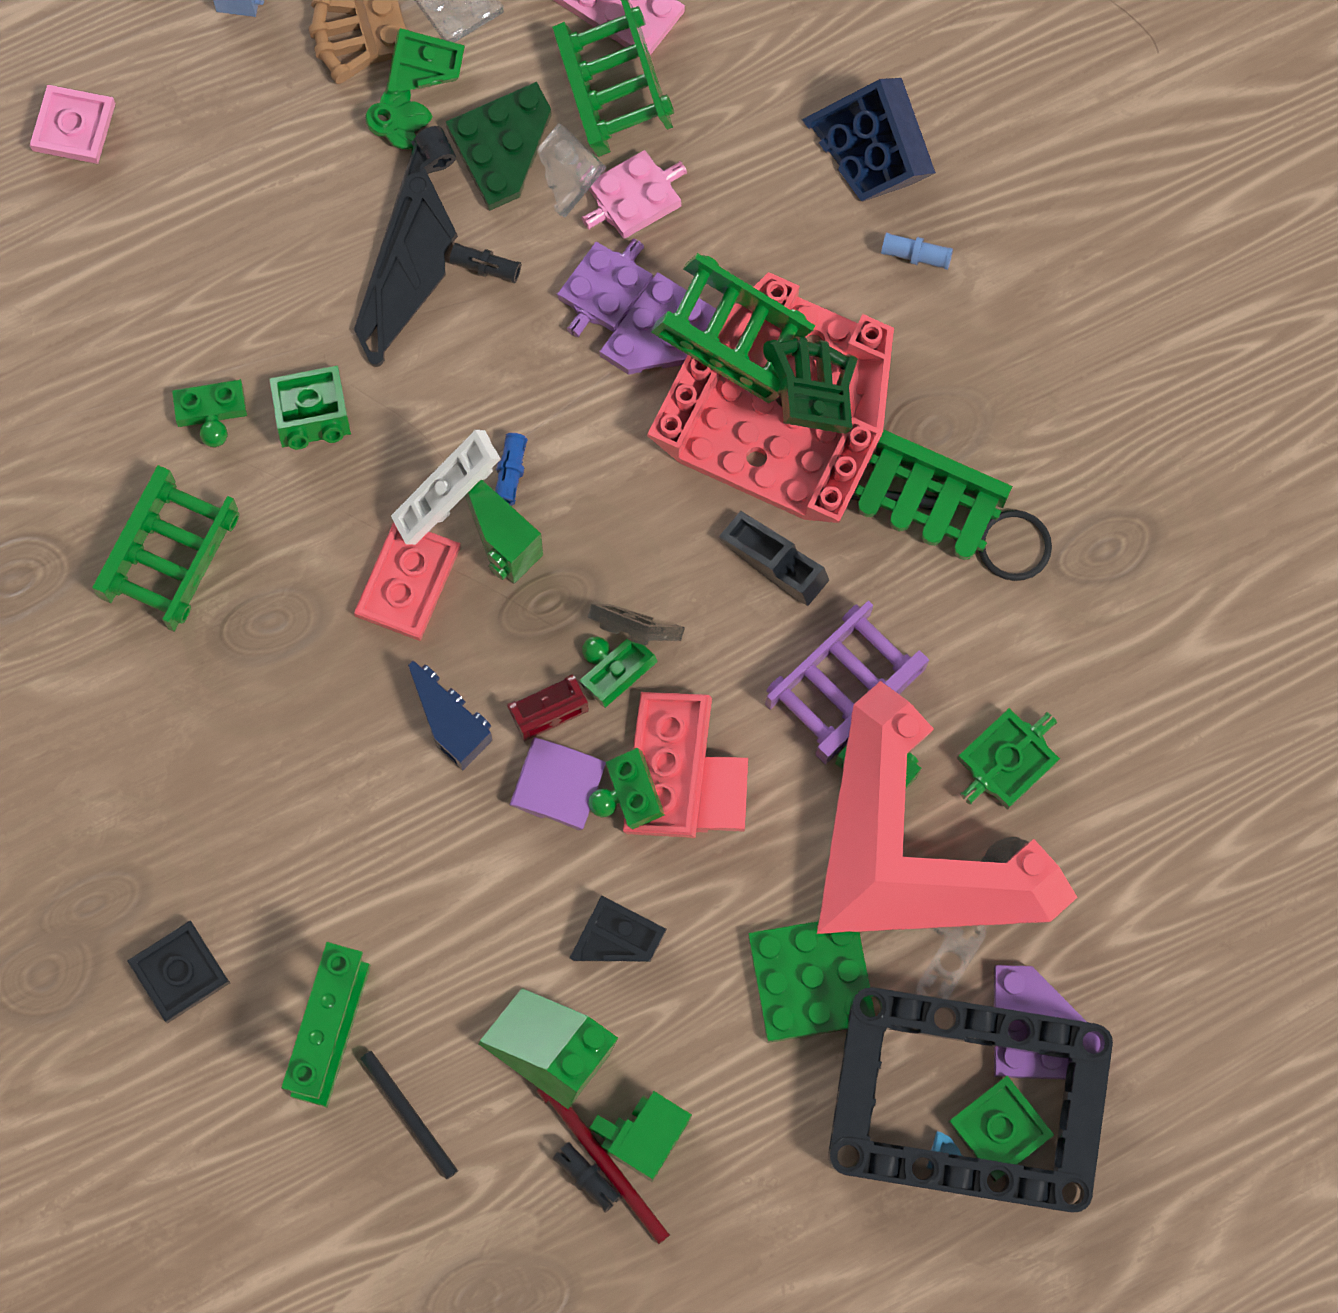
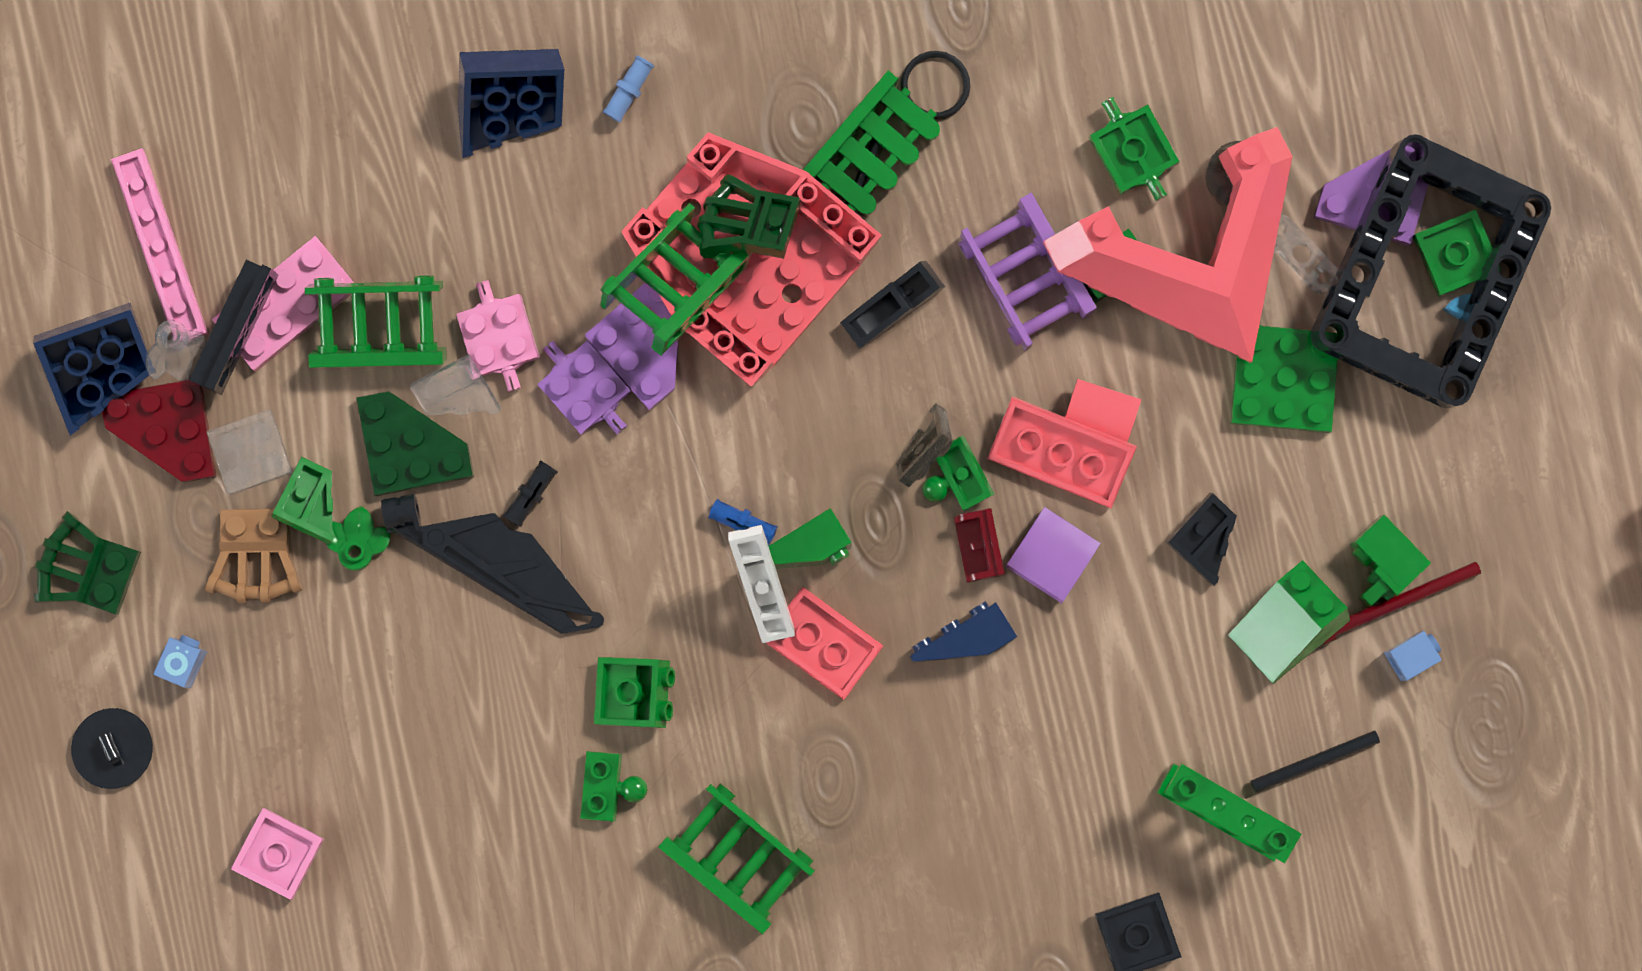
camera: 70 degrees left, 10 degrees up
(549, 1190) = (1414, 655): none -> medium blue brick
(587, 1177) = (1409, 619): black pin -> none
(632, 790) = (1078, 489): green plate -> none

